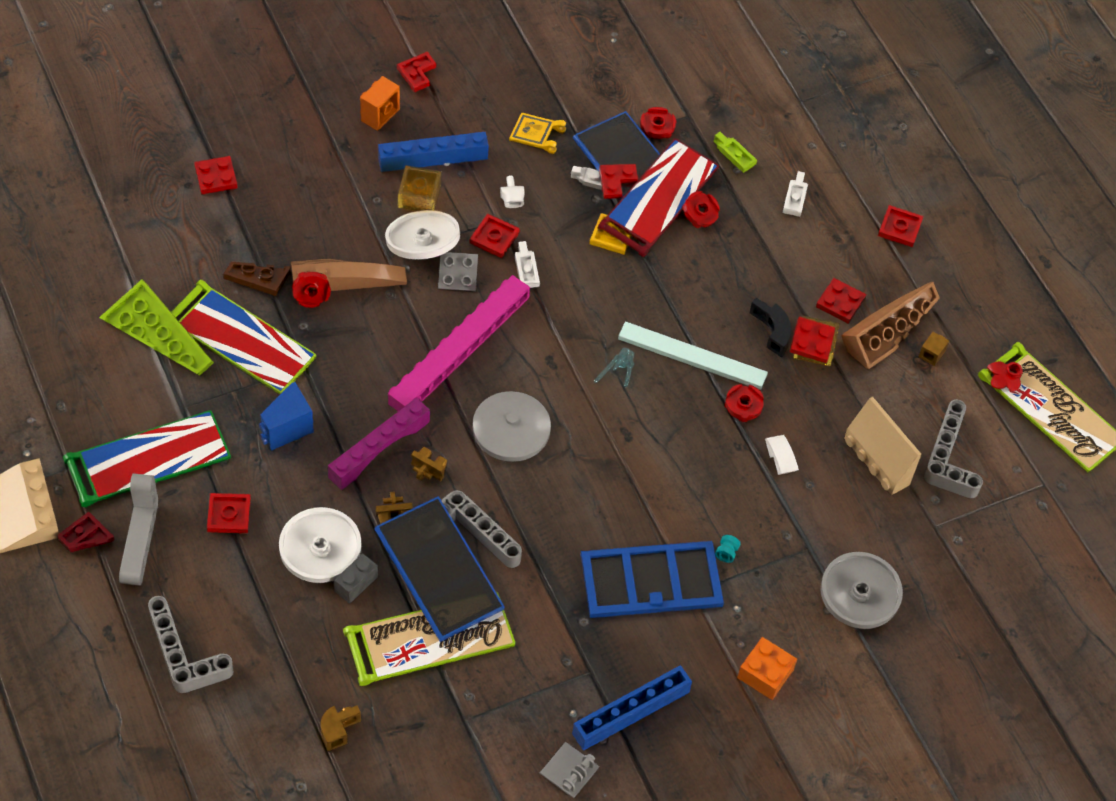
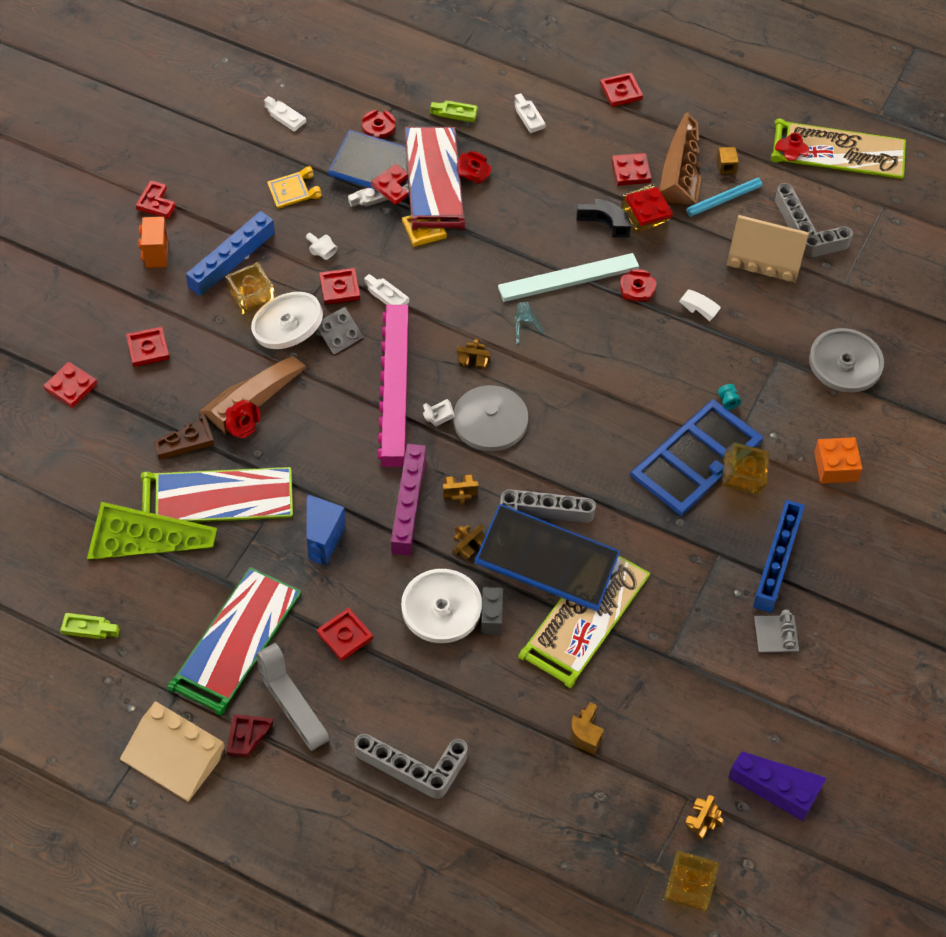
camera: 35 degrees left, 0 degrees up
(52, 369) = (88, 626): none -> lime hinge
(299, 184) = (147, 346): none -> plate
(471, 392) = (438, 413): none -> white bracket
(551, 371) = (474, 351): none -> pearl gold hips
(589, 65) = (284, 114): none -> white hinge
(675, 615) = (745, 468): none -> clear yellow brick
(899, 378) = (724, 197): none -> medium azure axle

